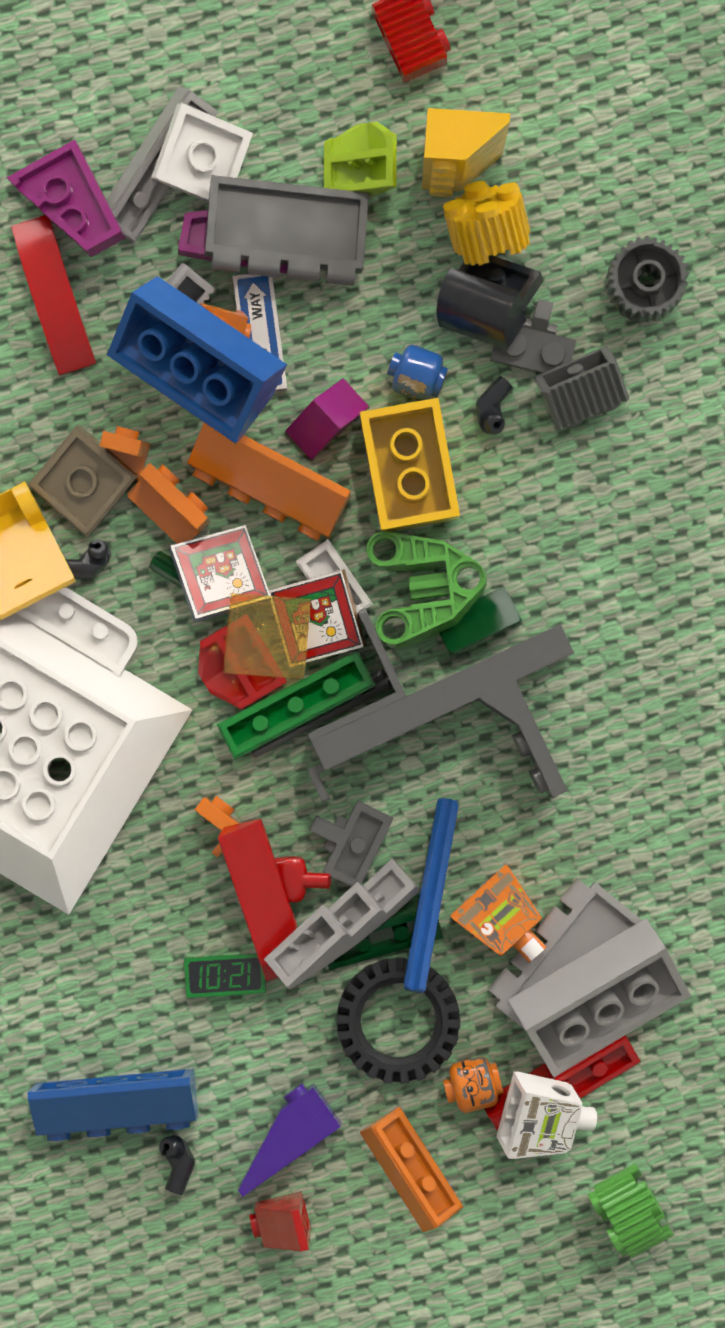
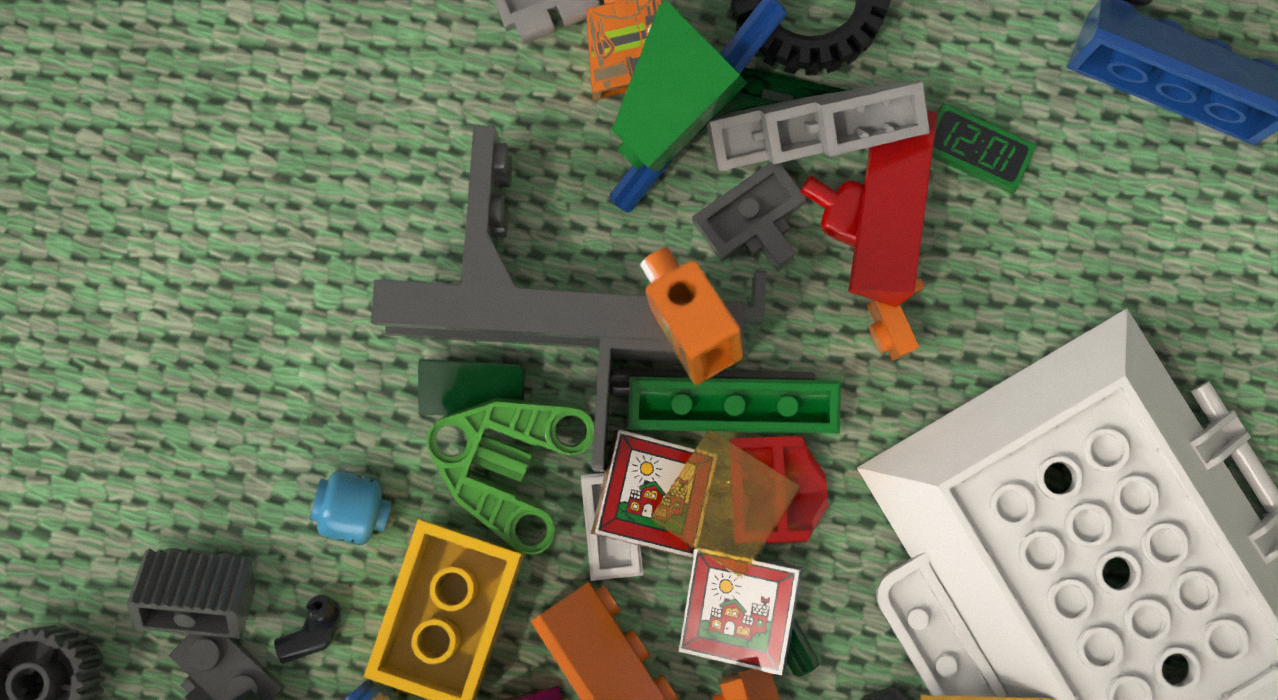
camera: 155 degrees left, 5 degrees down
(342, 729) = (700, 330): none -> orange torso
(450, 890) = (672, 91): none -> green slope
(512, 499) = (349, 507): none -> dark azure head

